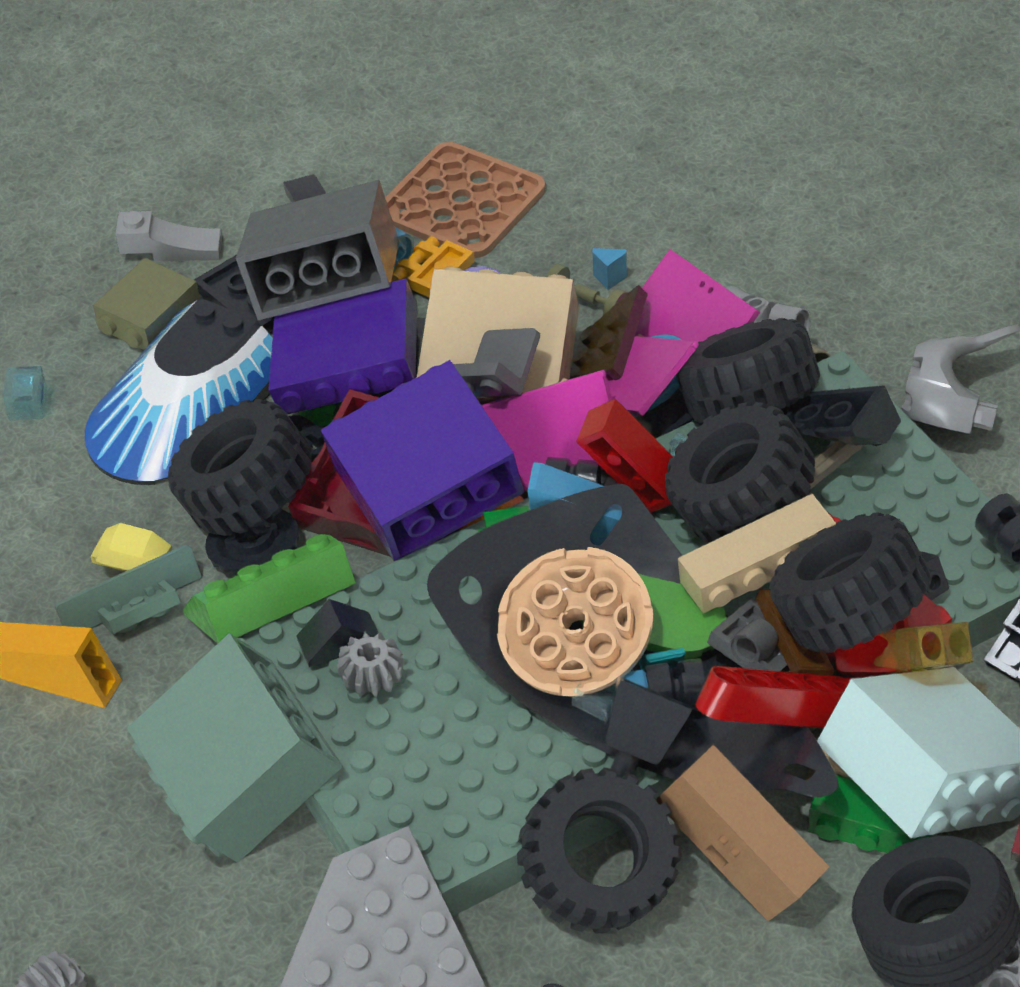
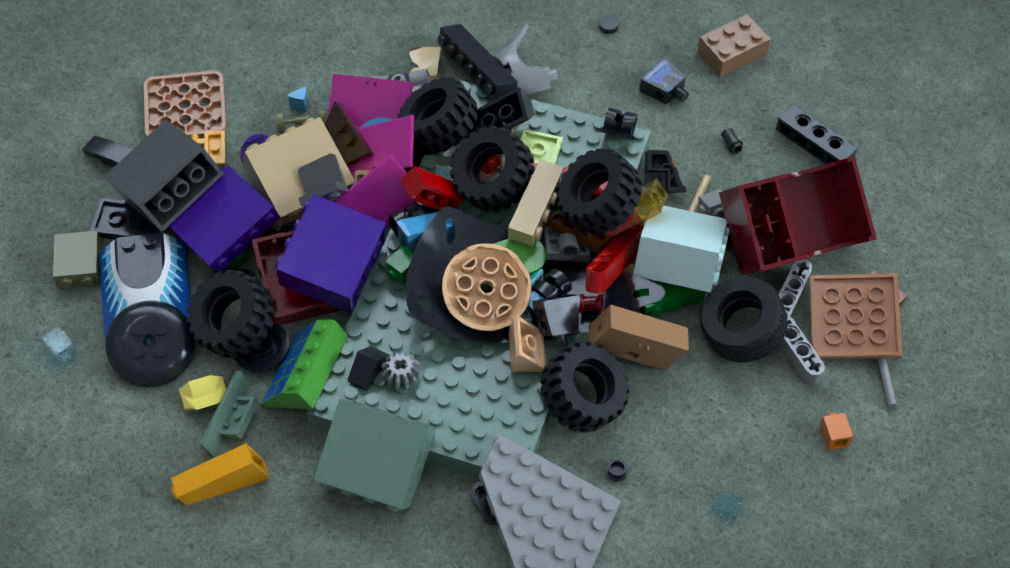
camera: 45 degrees left, 10 degrees up
(124, 479) = (154, 364): none -> black brick
(167, 241) = (50, 217): light grey slope -> none
(563, 736) = (526, 347): none -> light nougat slope
(714, 736) = (591, 303): none -> dark red bush
(825, 304) = (427, 59): none -> tan piece
(857, 492) = (542, 145): none -> yellowish green tile
(889, 335) = (476, 61): none -> black brick

